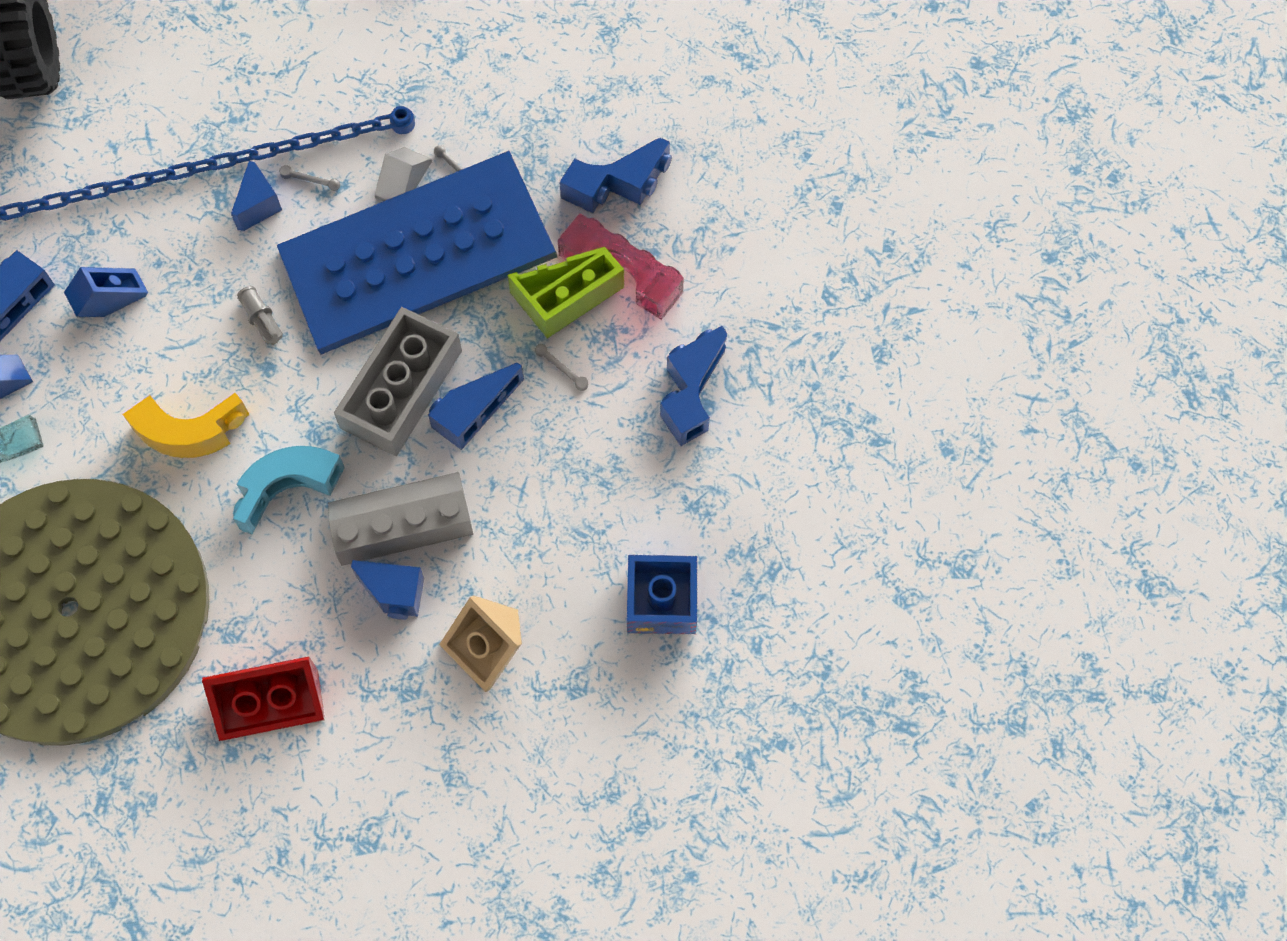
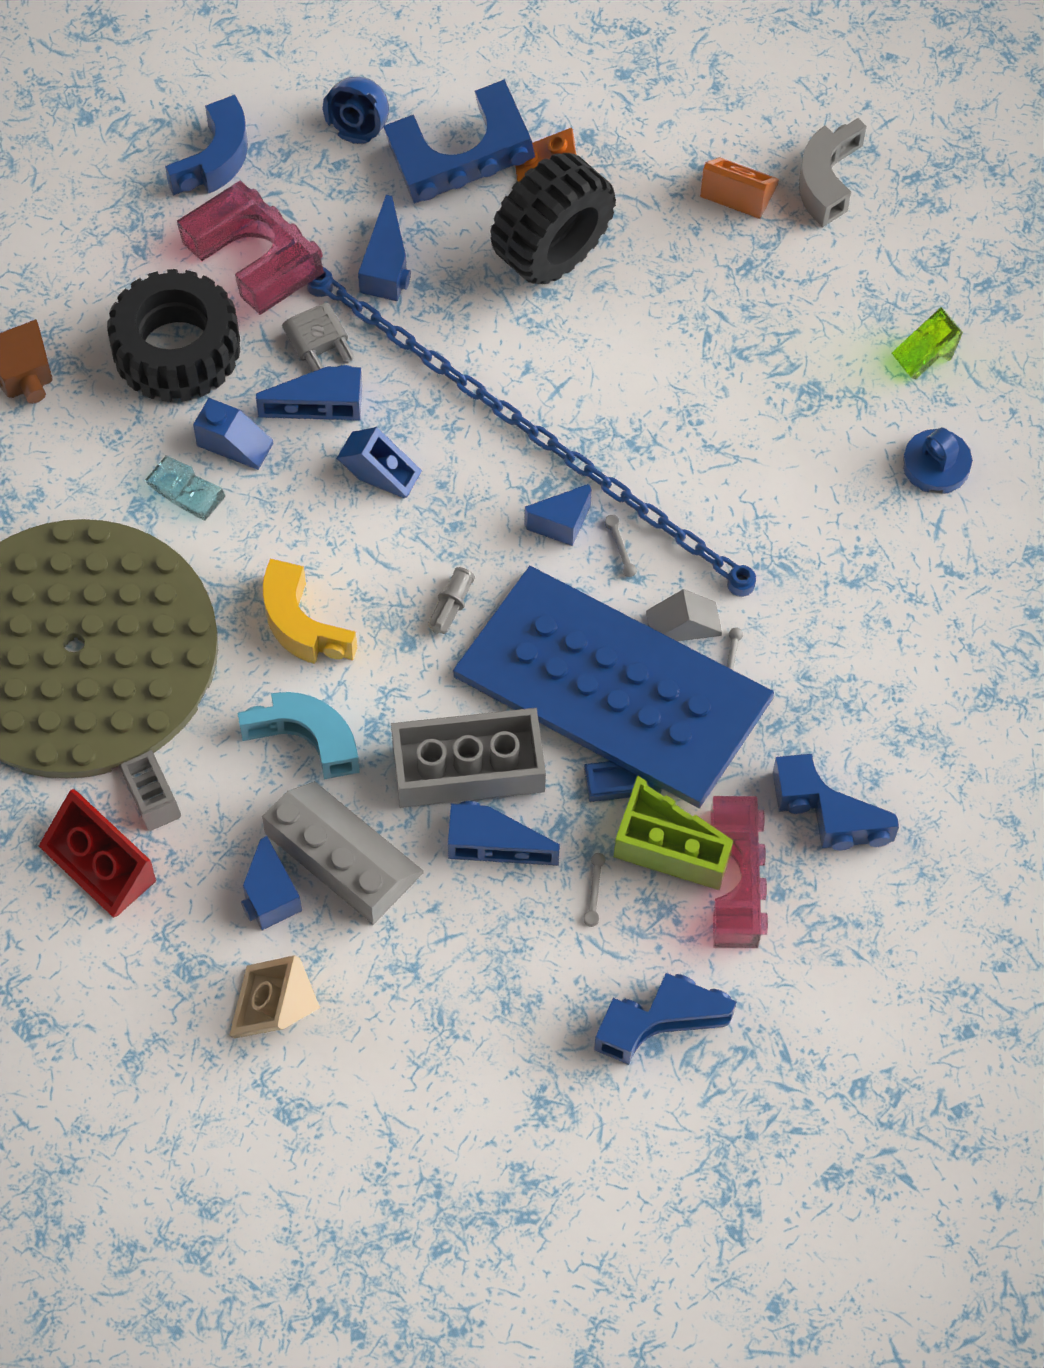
camera: 55 degrees right, 5 degrees down
(260, 632) = (159, 809): none -> light grey slope
(488, 303) = (610, 781): none -> blue tile
(662, 594) = (422, 1125): blue brick -> none

